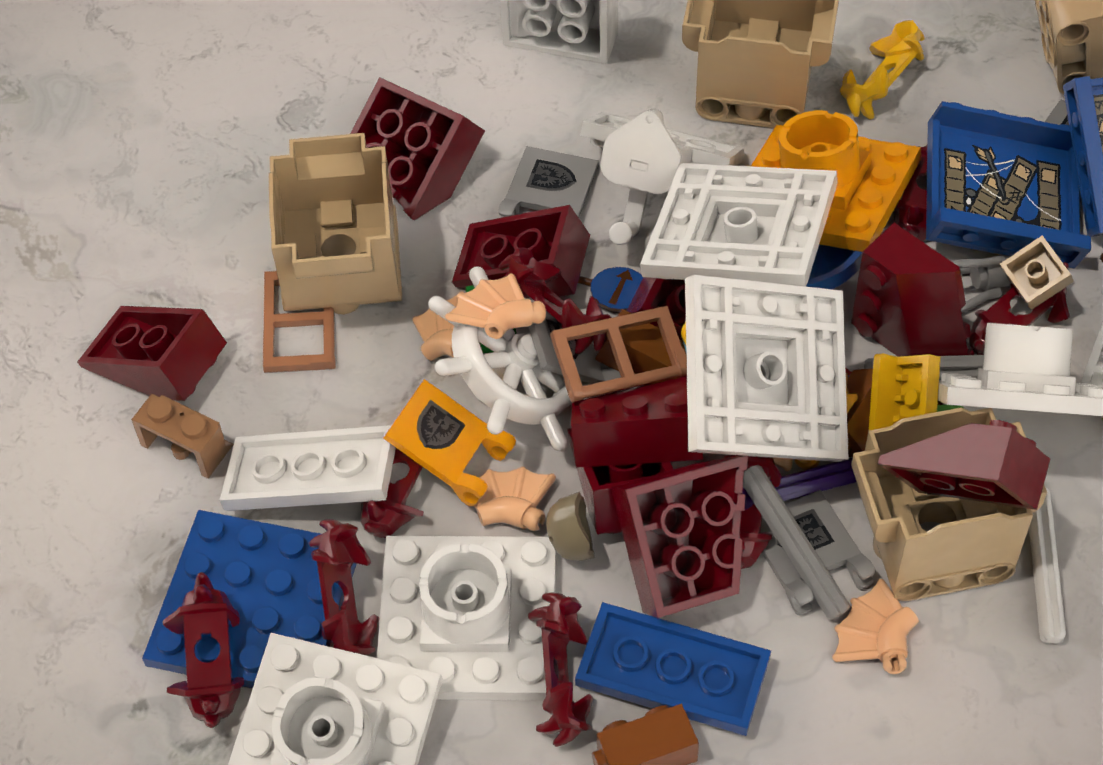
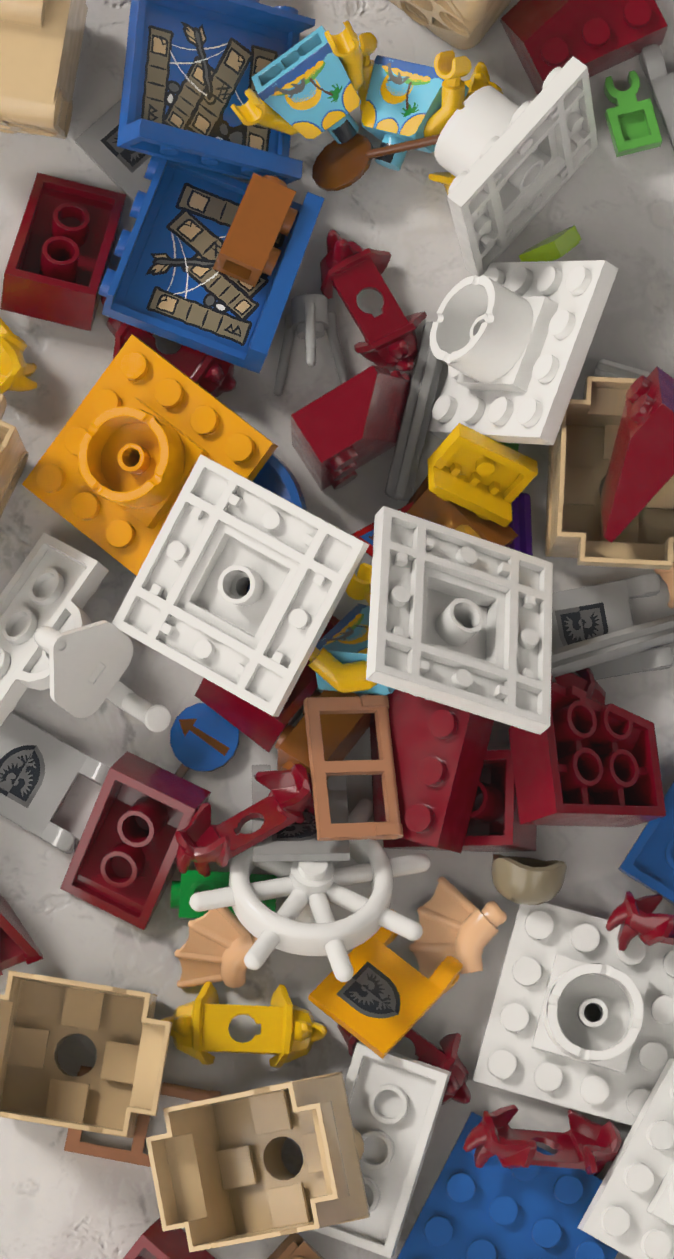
camera: 80 degrees left, 25 degrees up
(276, 366) = (225, 1171): none -> tan piece
(393, 385) = (204, 1026): none -> yellow piece
(497, 307) = (269, 892): light nougat arm -> none
(952, 80) = (62, 251): none -> dark red slope
(1036, 272) = (351, 272): tan piece -> none
(1043, 202) = (258, 221): none -> dark orange brick

